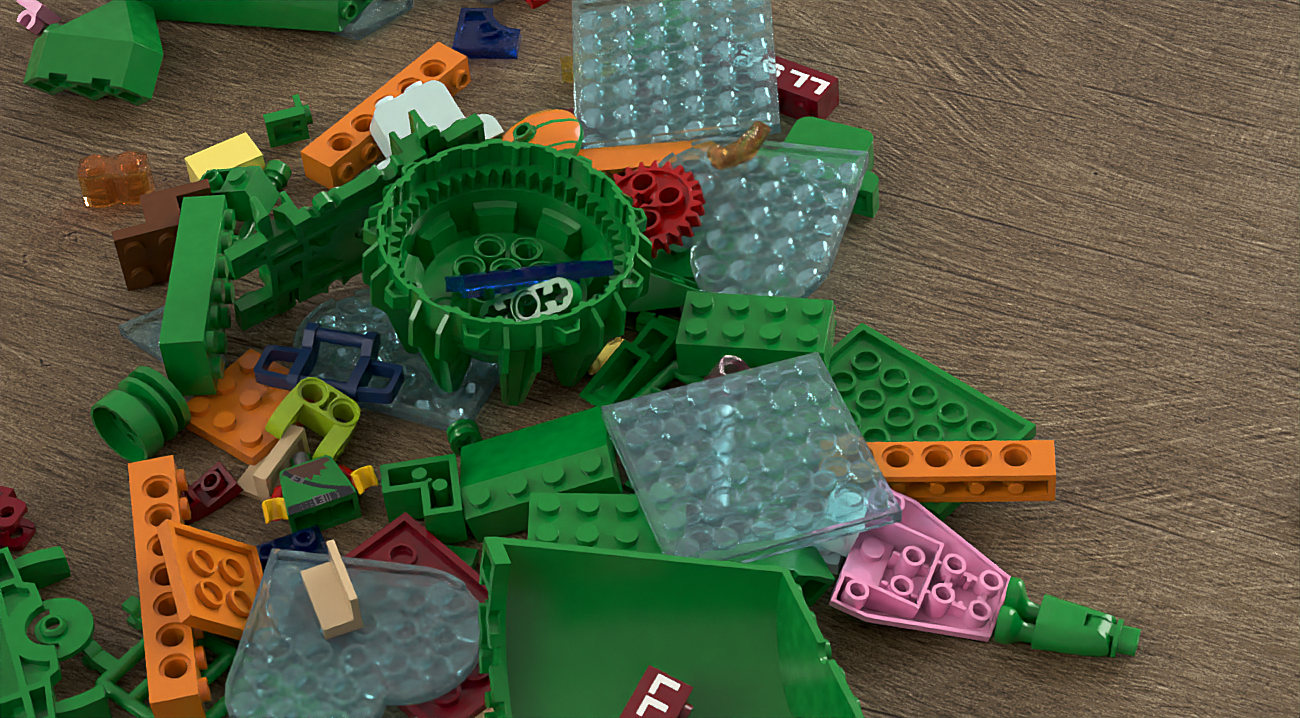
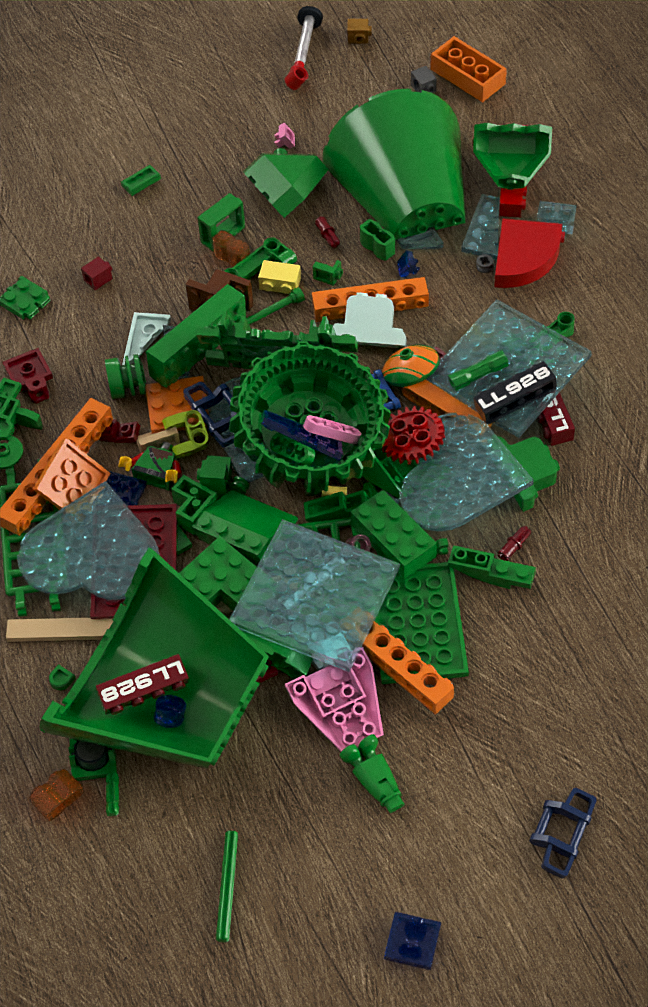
camera: 40 degrees right, 10 degrees up
(61, 148) = (234, 224): none -> green window
(95, 352) = (143, 332): none -> light aqua wing
(175, 144) = (271, 250): none -> green piece
(231, 81) = (327, 232): none -> dark red axle
(241, 184) = (266, 295): green slope -> none
(319, 43) = (377, 239): none -> green brick
(333, 595) = (103, 521): tan panel -> none
(390, 49) = (407, 264): none -> clear blue tile
(420, 434) = (216, 474): none -> green brick
(483, 37) = (455, 286): clear blue tile -> none
(554, 251) = (332, 429): none -> bright pink beam
(656, 68) = (465, 376): none -> green axle
(727, 77) = (515, 392): none -> black brick
(741, 150) = (479, 436): clear orange arm -> none
(910, 254) = (514, 543): none -> dark red axle
(916, 301) = (490, 570): none -> green slope

